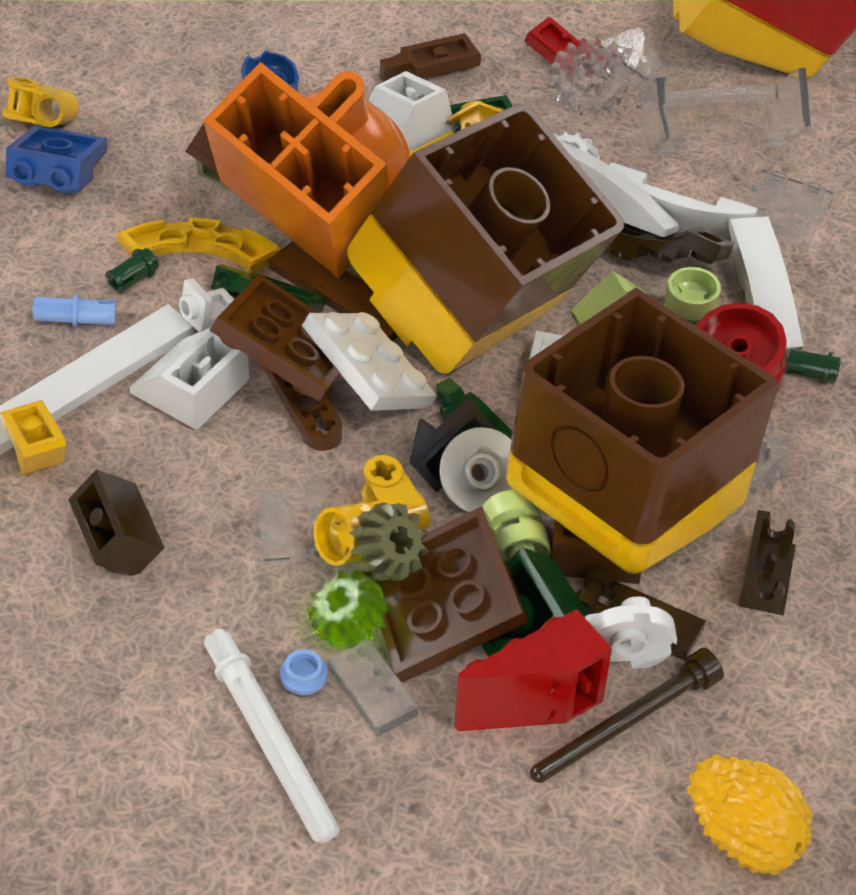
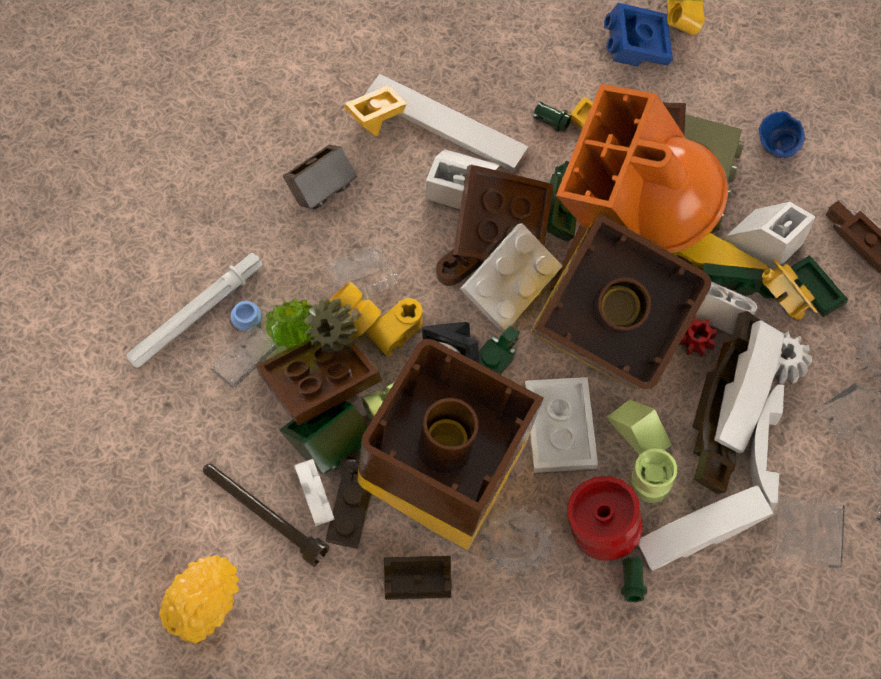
camera: 75 degrees right, 15 degrees up
(74, 310) = (501, 97): light blue axle -> none
(202, 307) = (528, 166): white bracket -> none
(536, 678) = (265, 446): red slope -> none

